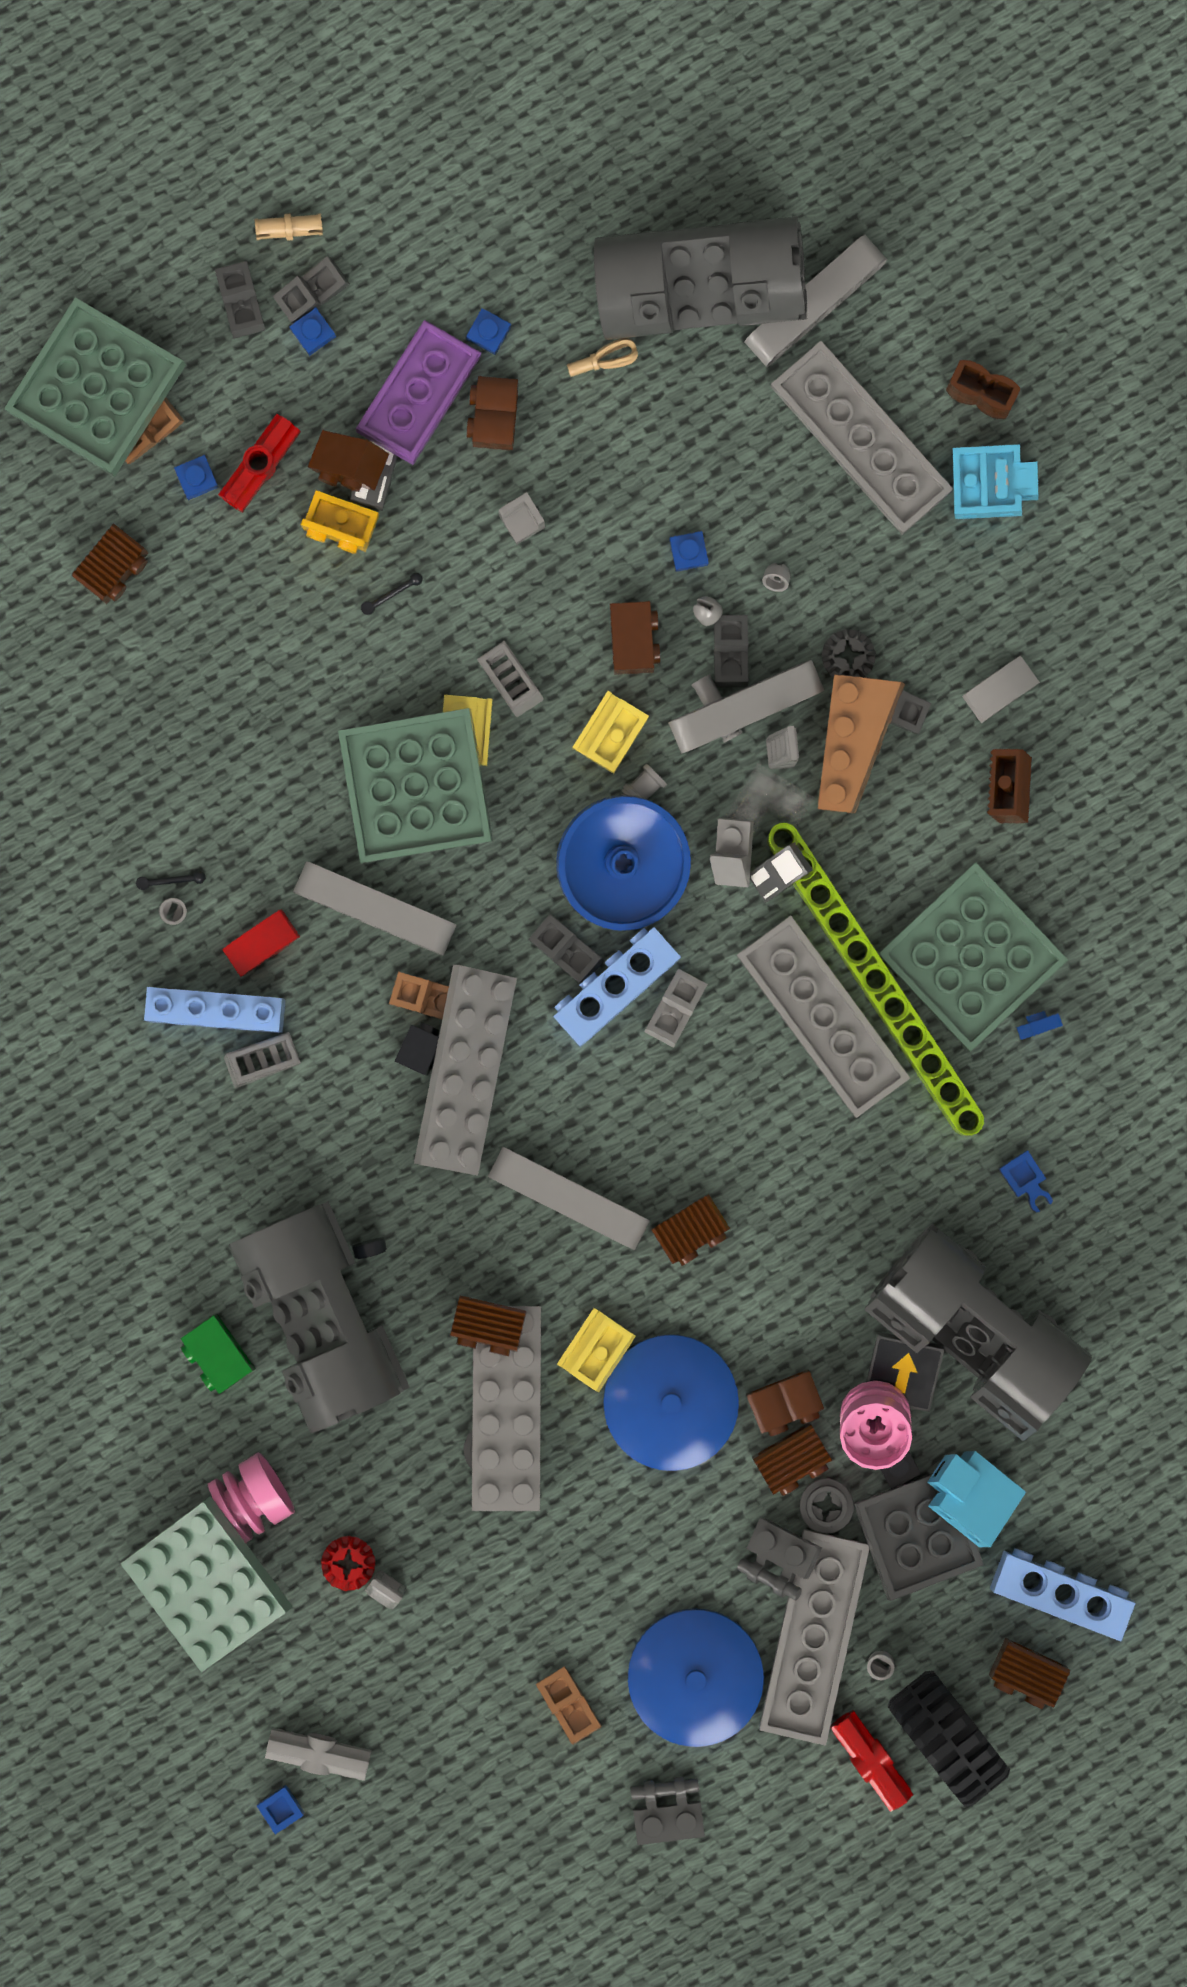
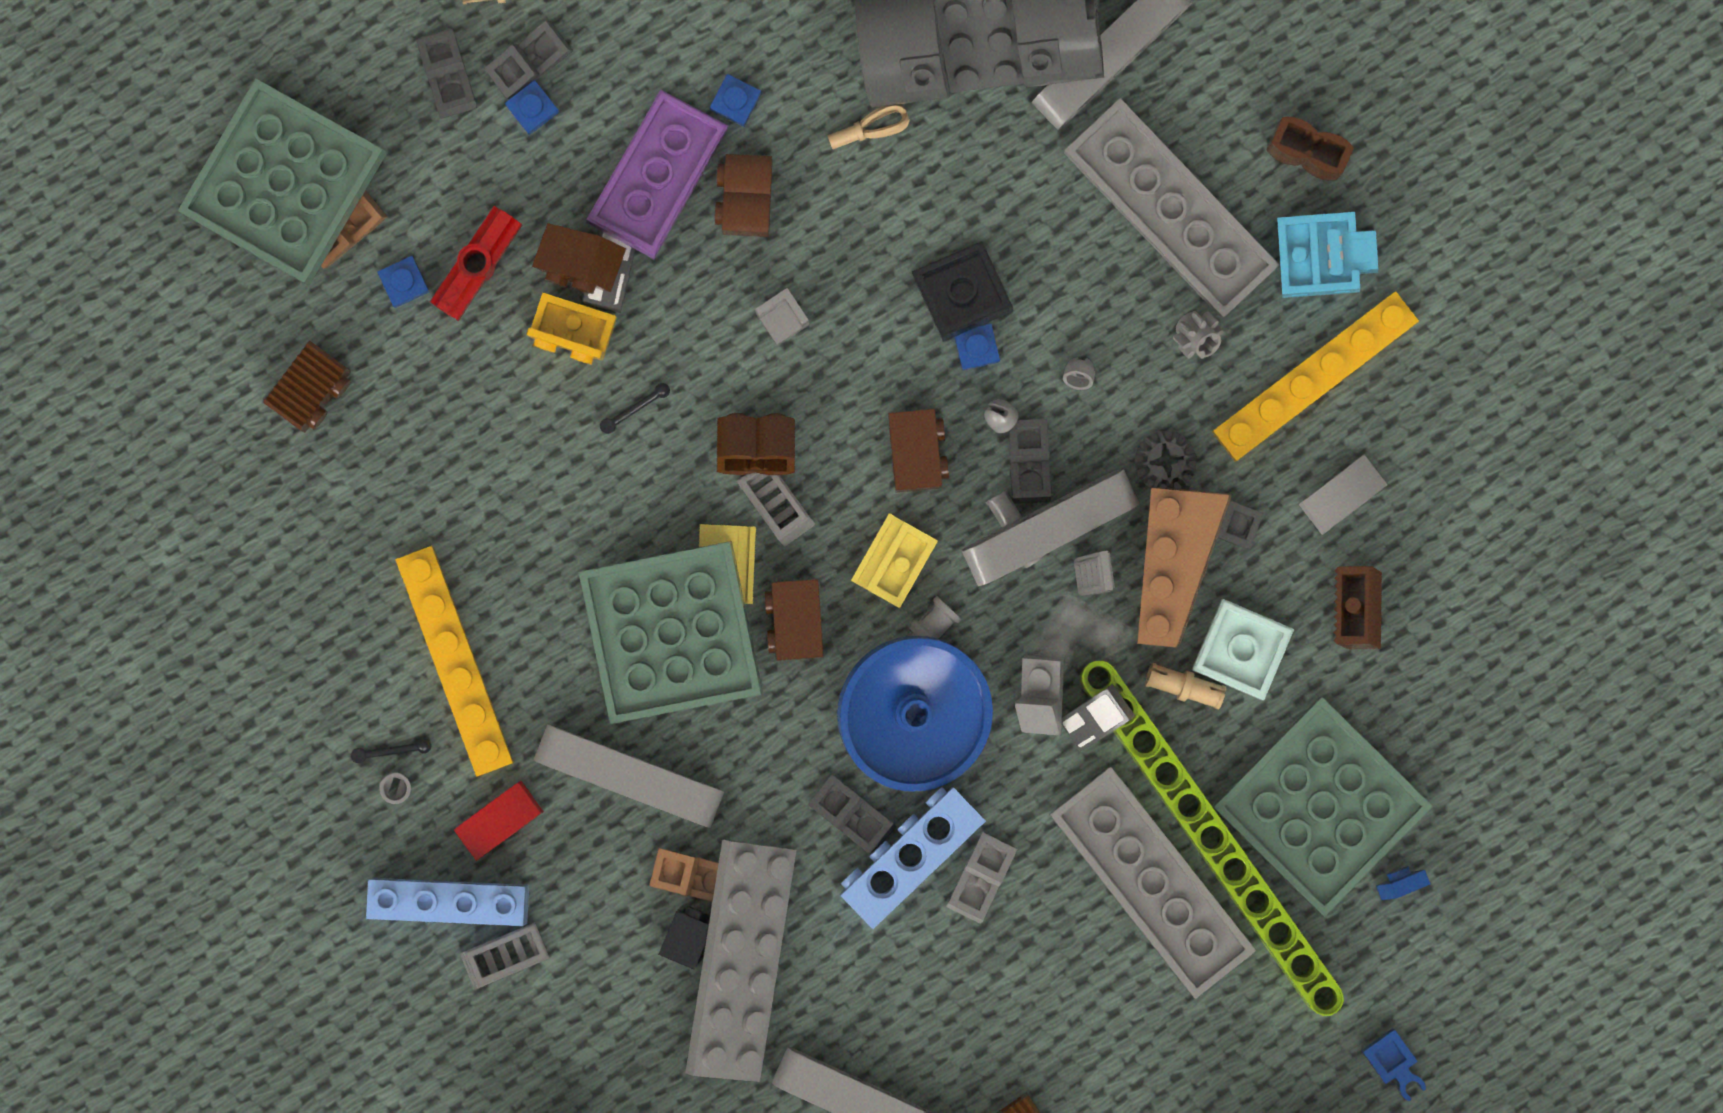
camera: 10 degrees left, 0 degrees up
(228, 805) = (454, 661): none -> yellow plate
(494, 627) = (756, 444): none -> reddish brown brick
(524, 779) = (795, 620): none -> reddish brown brick
(678, 502) = (962, 291): none -> black tile
(858, 849) = (1185, 686): none -> tan pin
(880, 546) = (1198, 334): none -> light grey gear
(908, 819) = (1242, 649): none -> light aqua plate
(980, 587) = (1315, 376): none -> yellow plate

